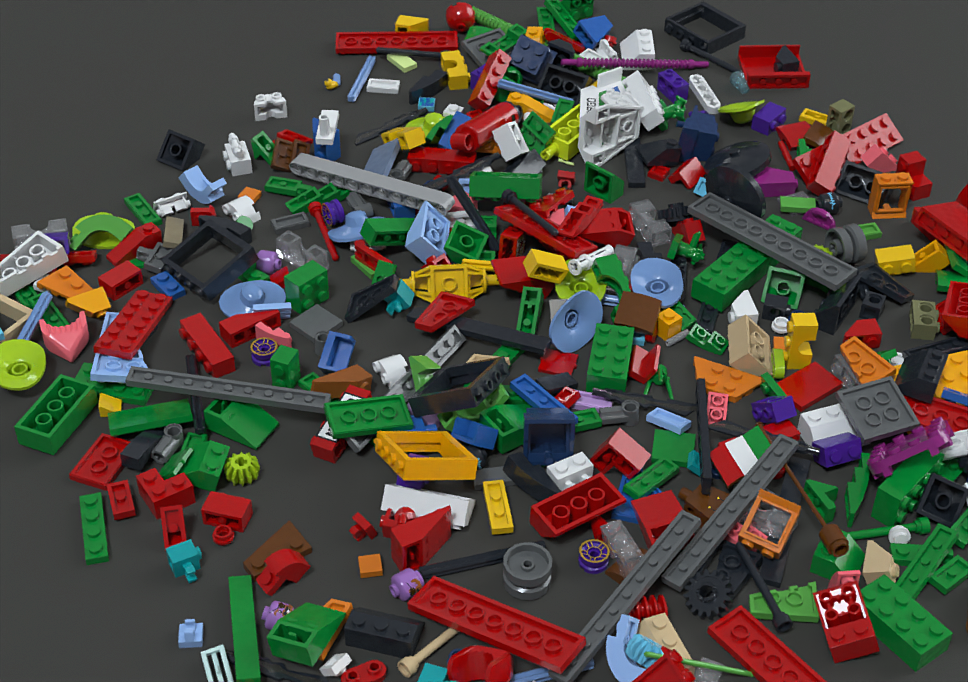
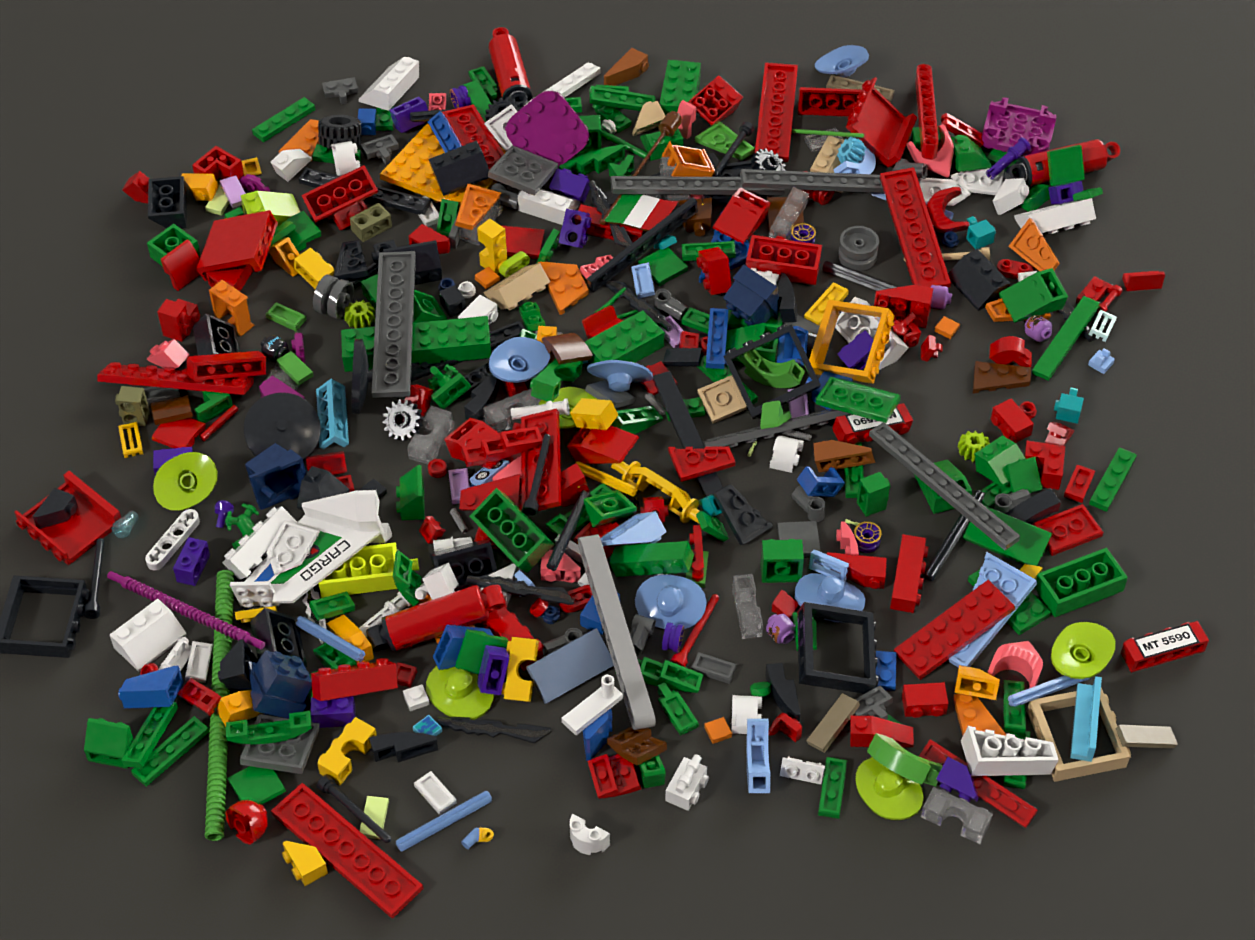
camera: 135 degrees left, 10 degrees up
(180, 150) = (731, 835): black slope -> none
(420, 119) = (493, 670): none -> dark purple brick
(548, 179) = (450, 543): none -> white axle

